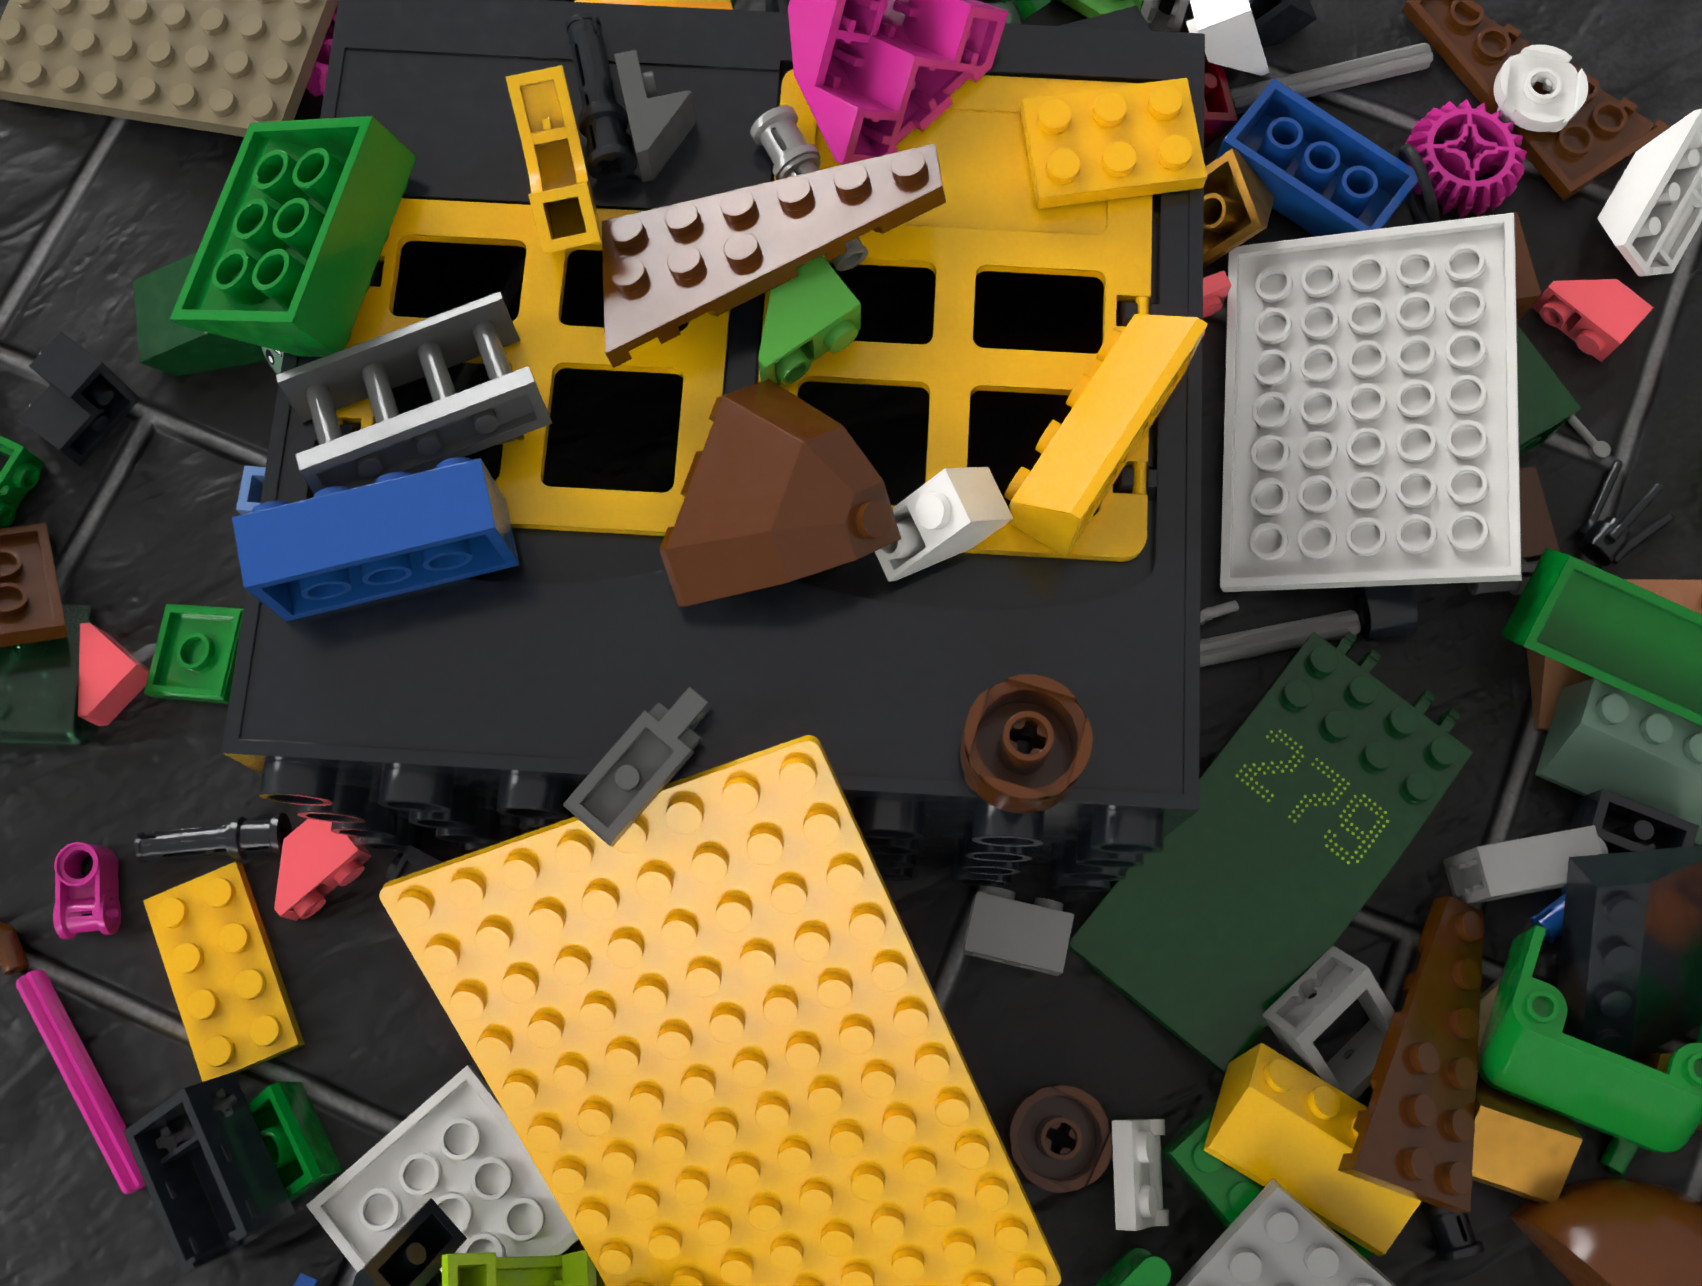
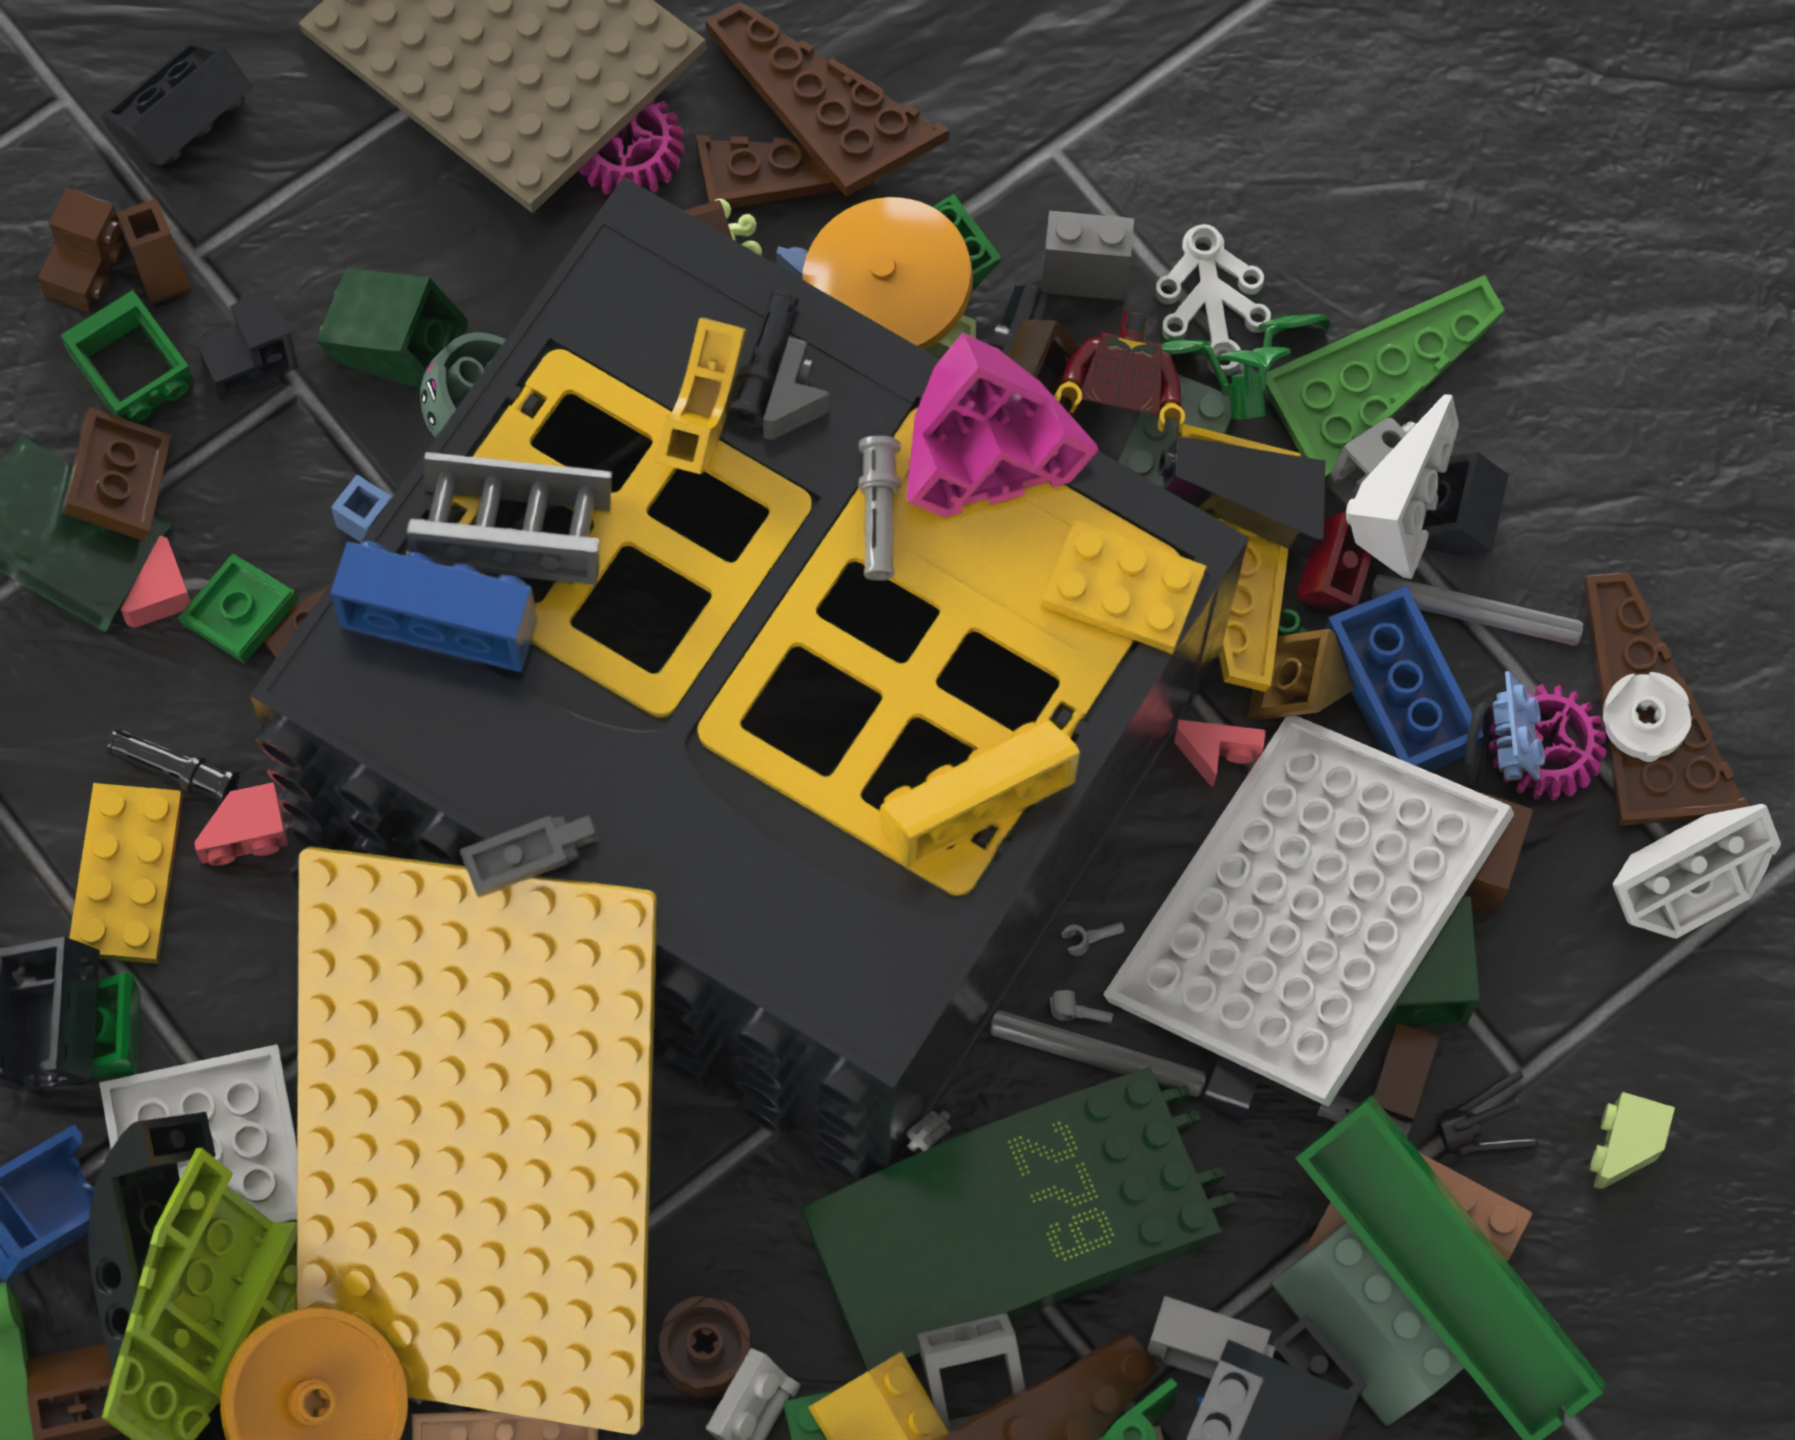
camera: 25 degrees right, 5 degrees down
(83, 895) = (51, 760): dark pink piece -> none
(297, 234) = (492, 353): green slope -> none
(743, 242) = (803, 524): wing -> none
(772, 499) = (717, 716): reddish brown brick -> none
(806, 321) = (814, 602): bright green slope -> none
(944, 520) = (827, 794): white slope -> none
(1018, 932) = (768, 1177): light grey brick -> none
(1059, 744) = (792, 948): reddish brown brick -> none
(1447, 138) = (1516, 719): none -> light blue hinge
(1592, 313) = (1576, 935): coral slope -> none
(1598, 449) = (1510, 1054): light grey hinge -> none

